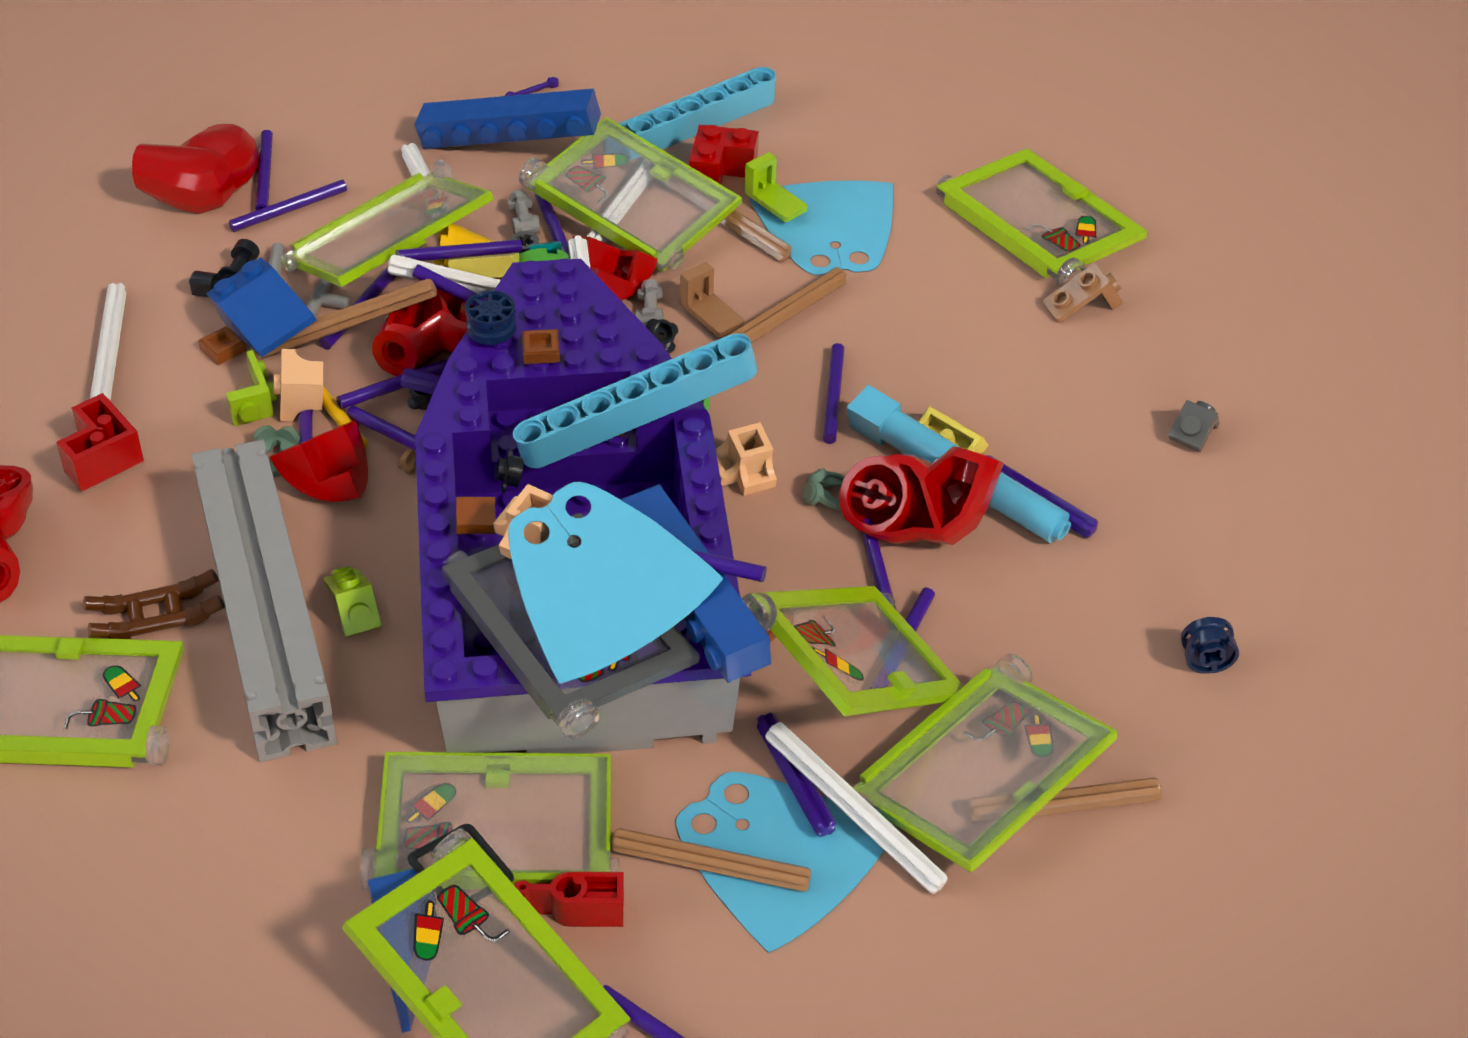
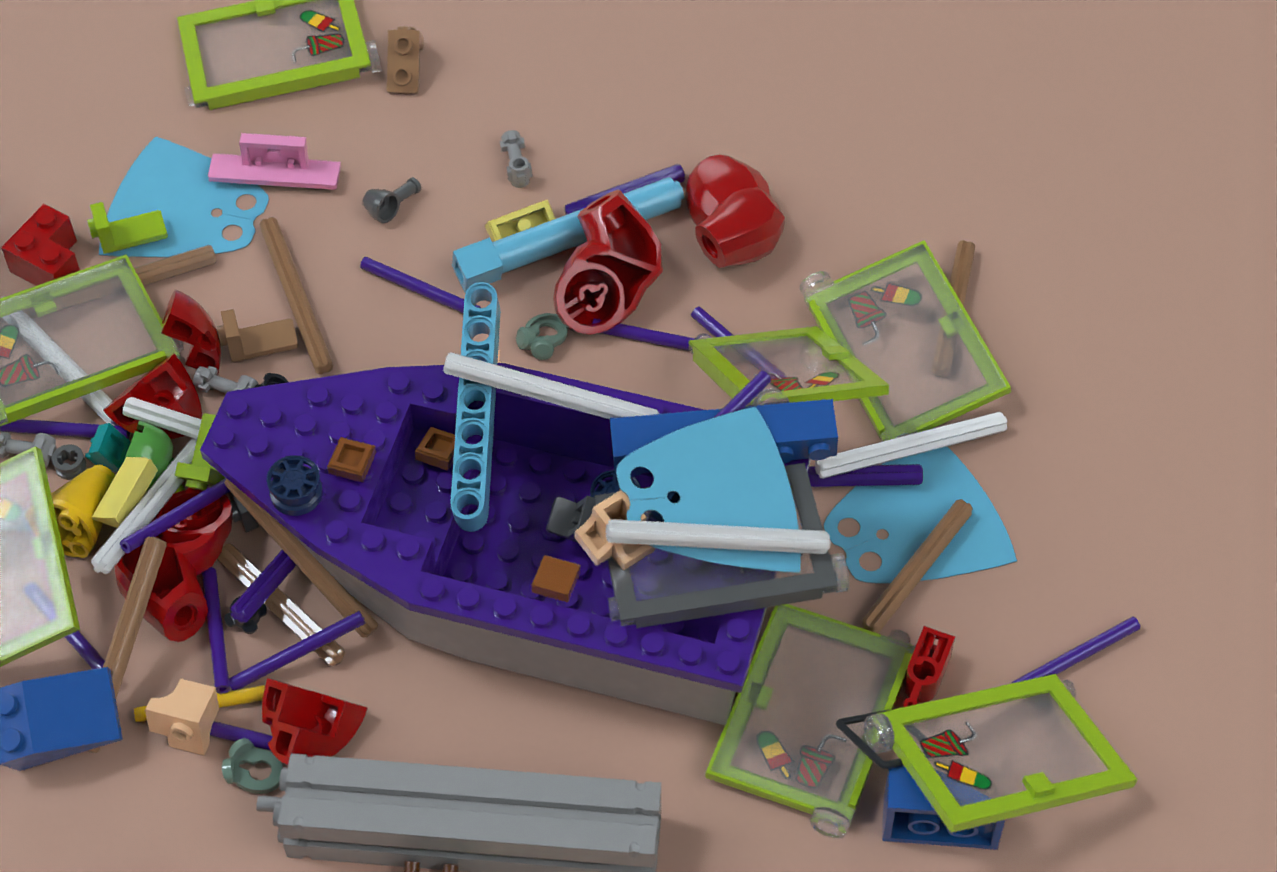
camera: 65 degrees left, 10 degrees up
(222, 345) = (59, 780): dark orange tile -> none
(254, 401) = (169, 753): lime bracket -> none
(321, 298) = (47, 660): light grey piece -> none
(353, 600) = (496, 744): lime bracket -> none
(462, 250) = (90, 509): dark purple bar -> none
(508, 470) = (516, 533): black plate -> none
(547, 591) = (717, 536): none -> white axle
(667, 433) = (541, 388): none -> white axle
(683, 245) = (192, 324): none -> red brick
(902, 253) = (274, 162): none -> bright pink bracket
(909, 342) = (385, 204): none -> dark grey bar
(1010, 408) = (519, 169): none -> light grey bar
(1059, 580) = (732, 211): none -> red piece
(1194, 425) = (602, 53): dark grey bracket -> none
(1210, 646) = (850, 149): dark blue wheel -> none

